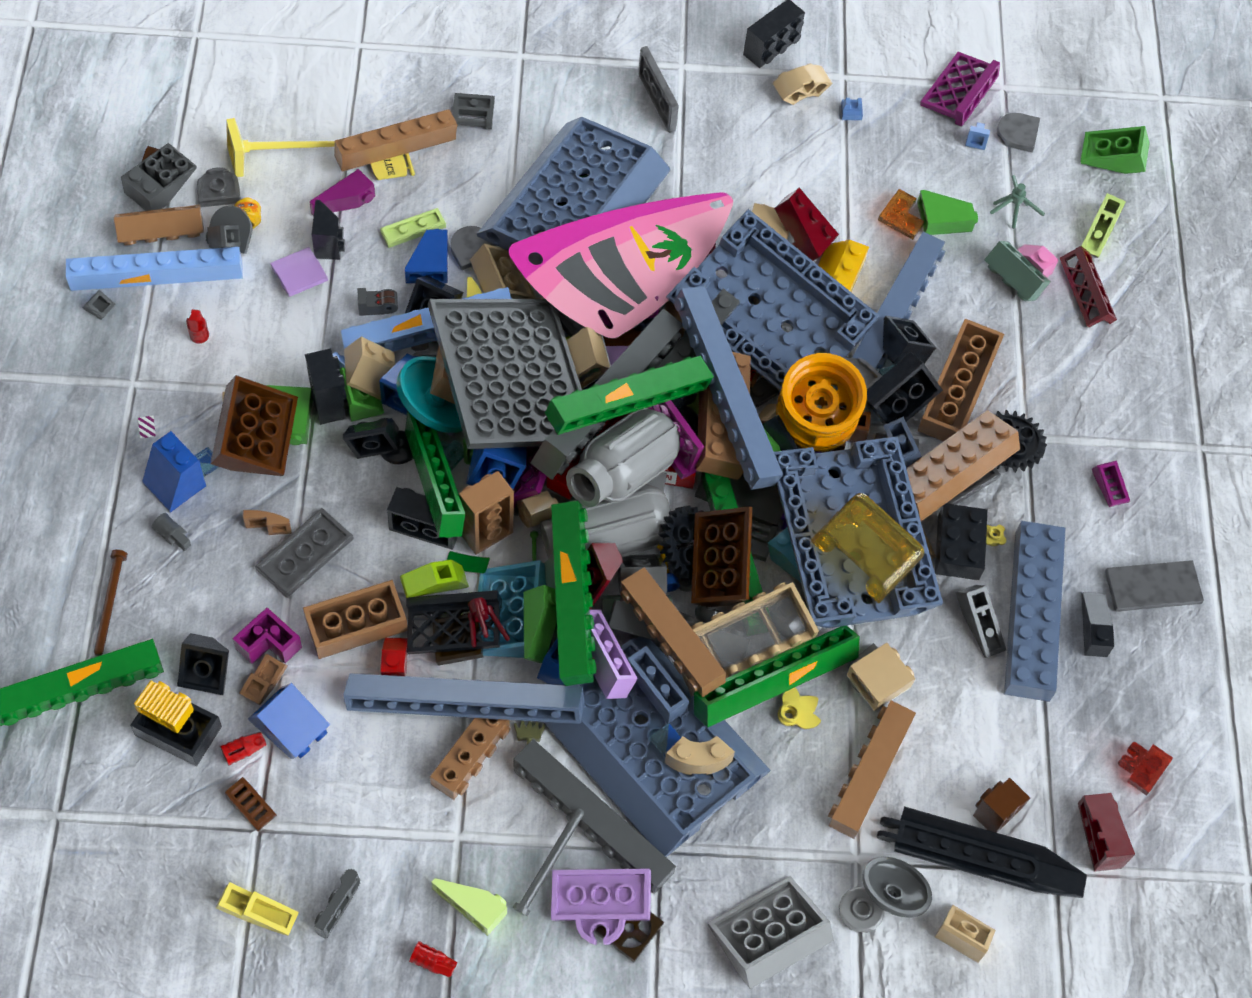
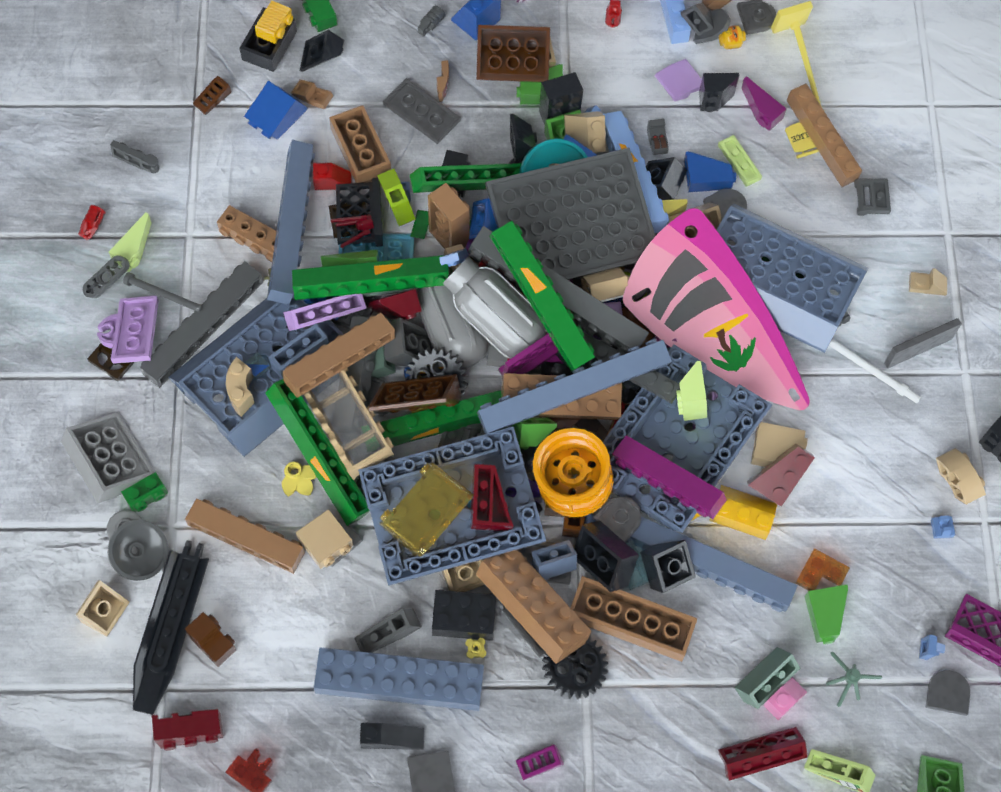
camera: 90 degrees right, 5 degrees up
(250, 744) = (253, 82): red hinge -> none
(257, 909) = (131, 106): light yellow slope -> none
(267, 633) = (343, 88): magenta brick -> none
(525, 954) = (97, 277): none -> dark grey beam
(560, 491) = (454, 258): none -> medium blue hinge
(580, 81) = (931, 283): none -> tan slope
(701, 120) = (902, 389): none -> white bar
(737, 273) = (692, 394): none -> yellowish green slope
(818, 884) = (144, 492): none -> green bracket
(825, 313) = (669, 477): none -> magenta brick
(840, 484) = (488, 503): none -> dark red wedge

